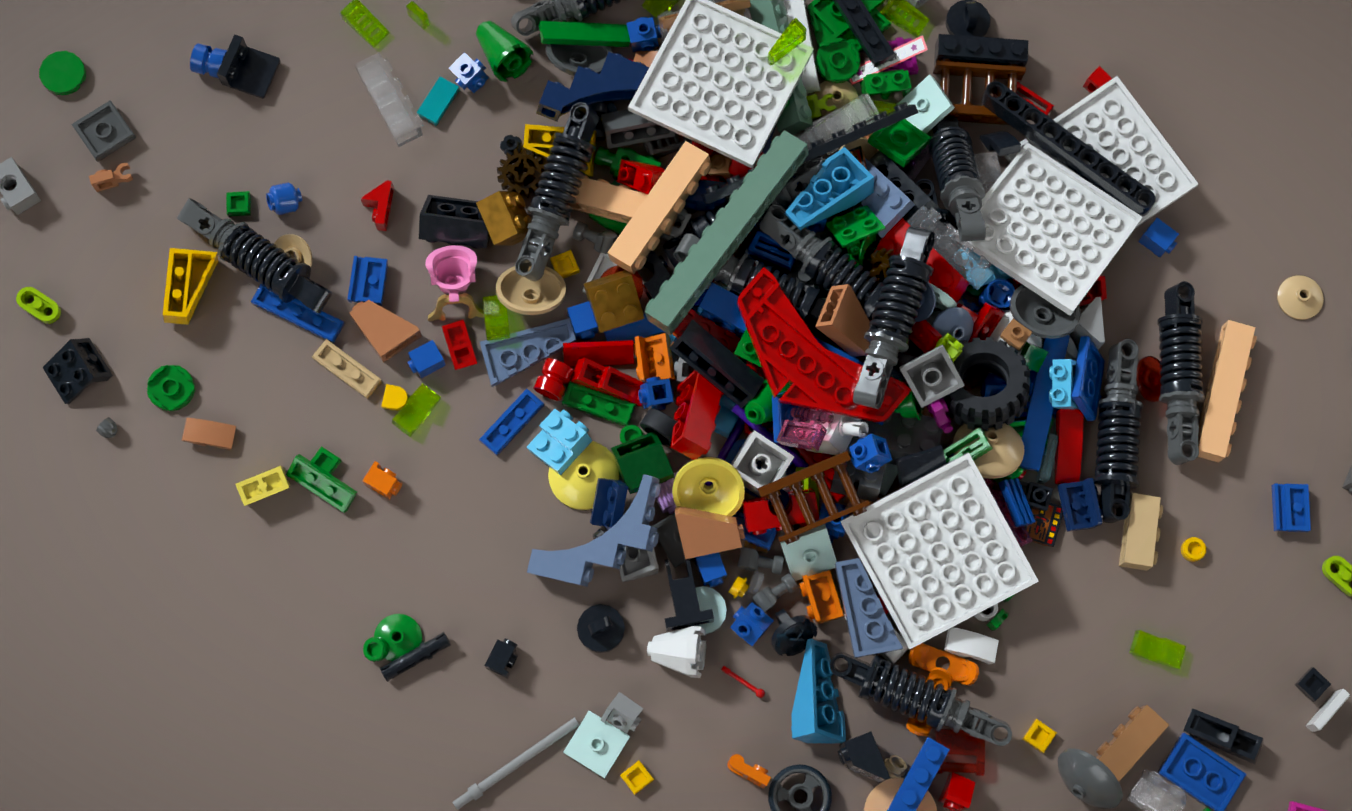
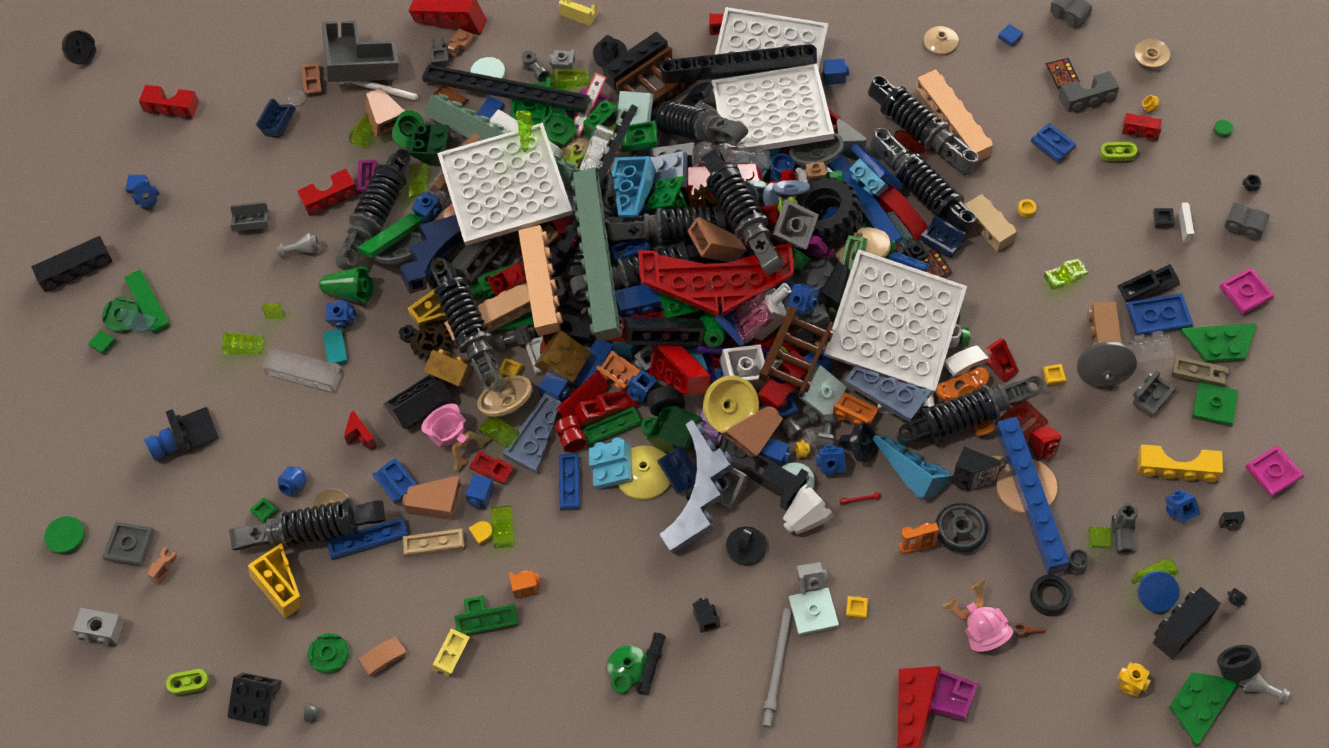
camera: 35 degrees left, 15 degrees down
(971, 331) = (791, 188): none -> sand blue dish
(1003, 677) = (1001, 360): none -> red slope

